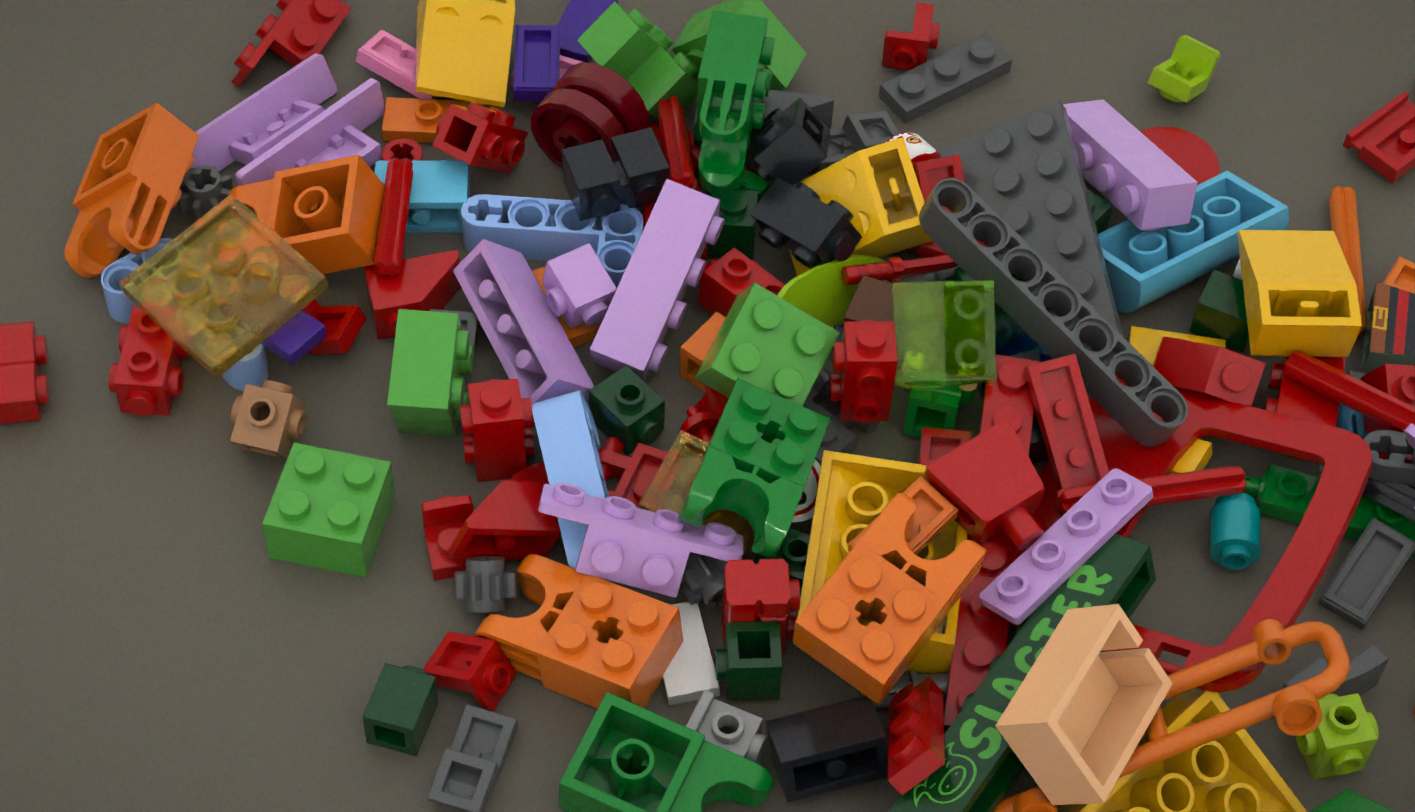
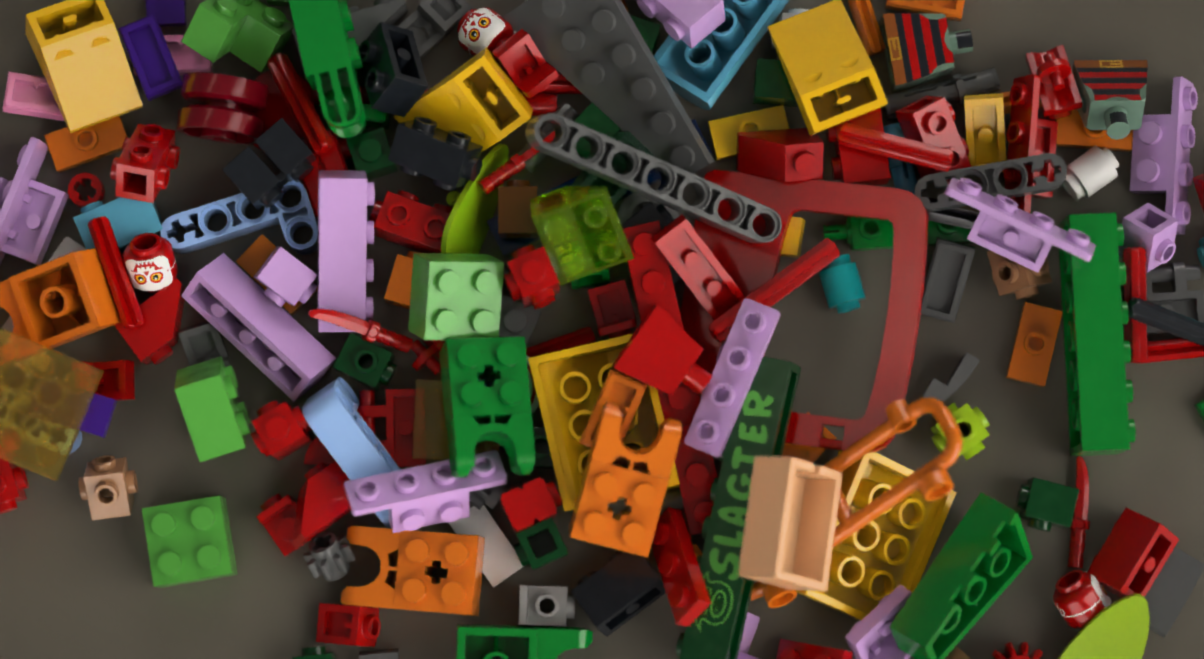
camera: 20 degrees left, 30 degrees up
(436, 223) = (150, 262): none -> head
(650, 366) = (370, 329): none -> red piece

